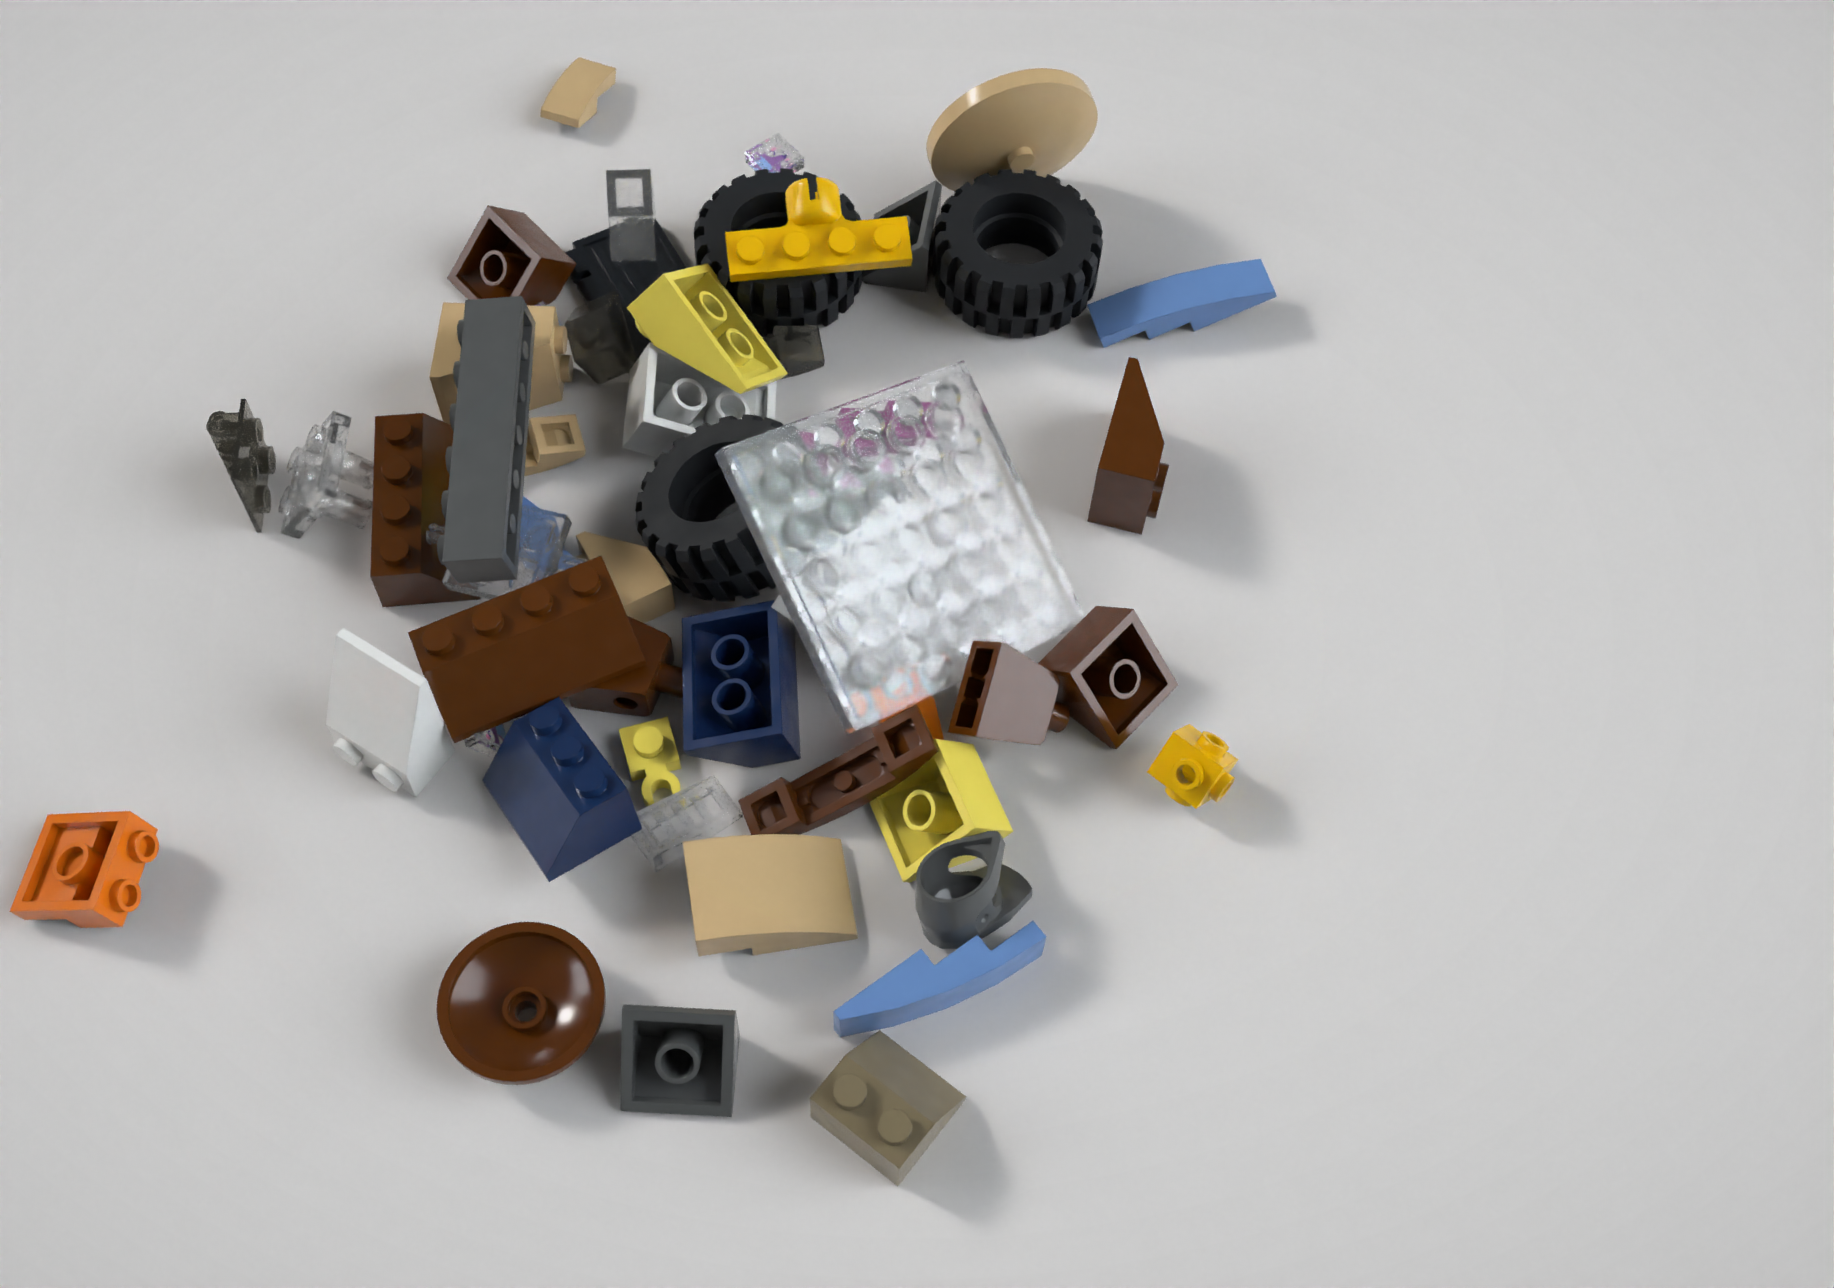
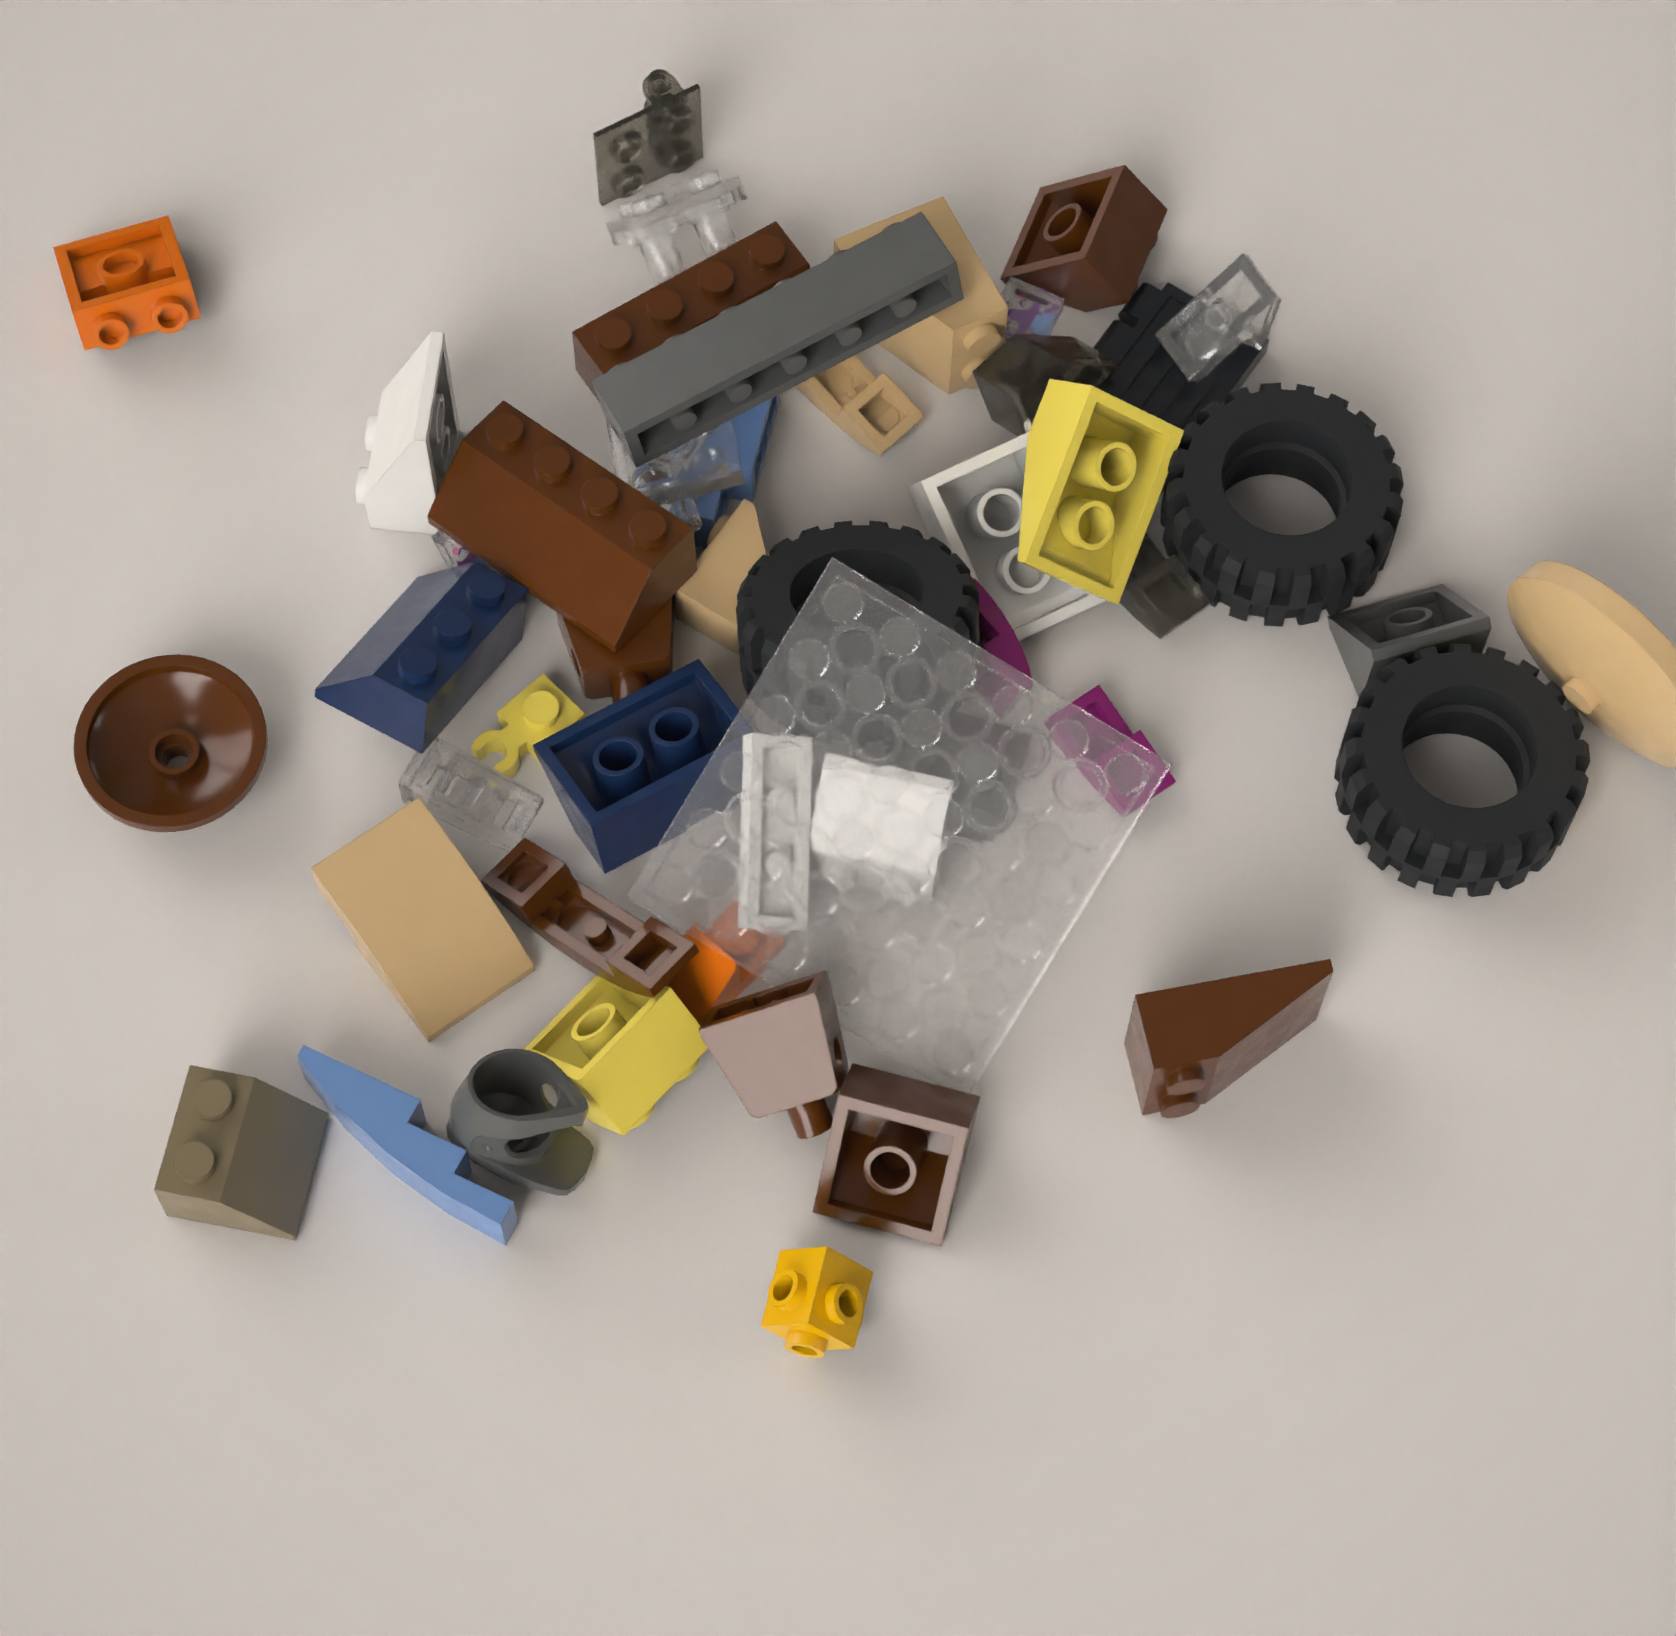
camera: 65 degrees right, 5 degrees up
(576, 92) = (1392, 165): tan slope -> none
(678, 1060) = (187, 929): dark grey slope -> none
(773, 155) = (1451, 431): clear tile -> none
(817, 240) = (1281, 526): yellow plate -> none
(1180, 299) = (1528, 1004): medium blue slope -> none

